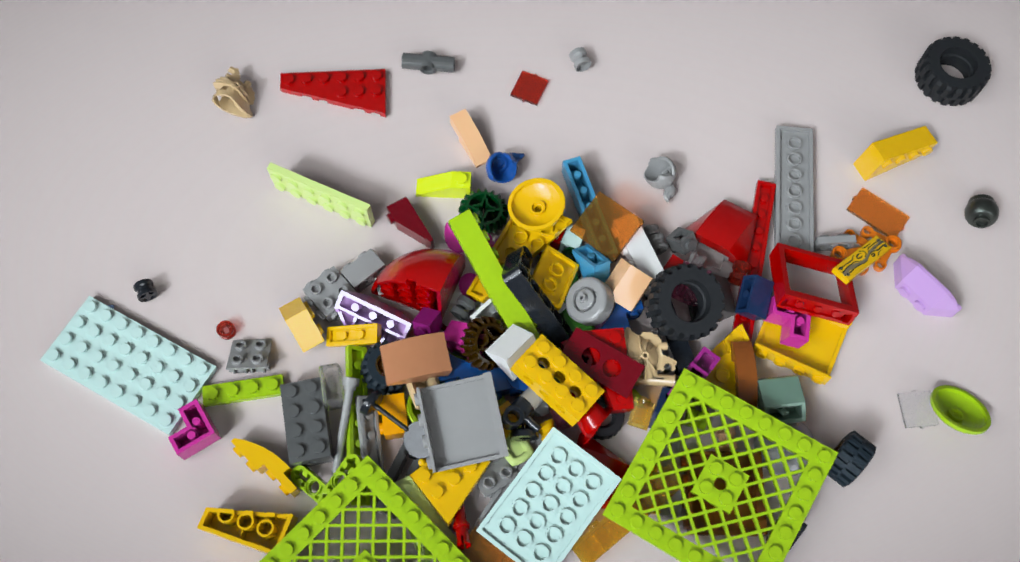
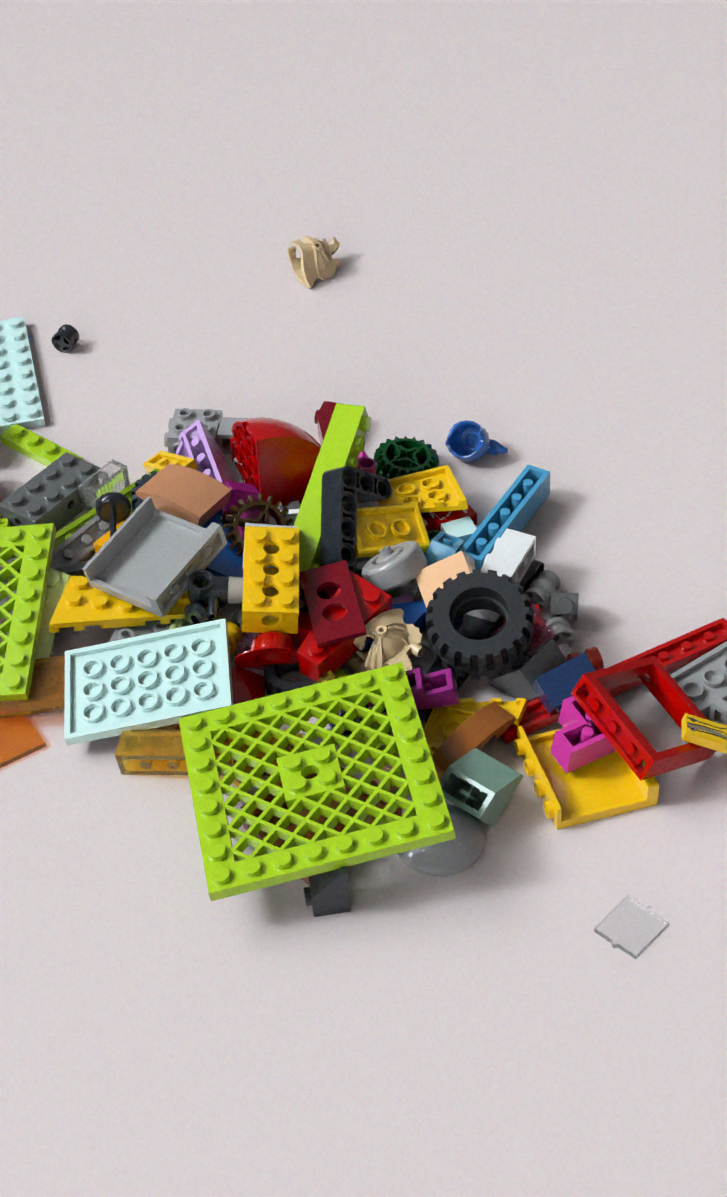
camera: 50 degrees right, 25 degrees down
(220, 329) = (85, 404): clear red bush -> none
(249, 355) = (74, 430): light grey hinge -> none
(300, 321) = (140, 429): yellow brick -> none
(322, 195) = (281, 361): yellowish green plate -> none
(342, 88) = (412, 313): red wing -> none
(350, 385) = (115, 484): light grey piece -> none
(428, 62) = (515, 336): dark grey piece -> none
(445, 185) = (402, 424): neon yellow slope -> none
(461, 528) = (62, 643): red pin -> none
(470, 137) = (475, 399): light nougat slope -> none
(529, 88) = (588, 412): clear red piece -> none
(534, 195) = (444, 462): yellow dish -> none
(580, 59) = (668, 417): light grey wheel -> none
(606, 226) = (494, 528): clear orange piece -> none
(660, 175) = (620, 549): light grey hair -> none
(726, 230) = (625, 627): red wedge -> none
(852, 458) = (477, 877): black wheel -> none
(960, 410) = (669, 947): lime dish -> none

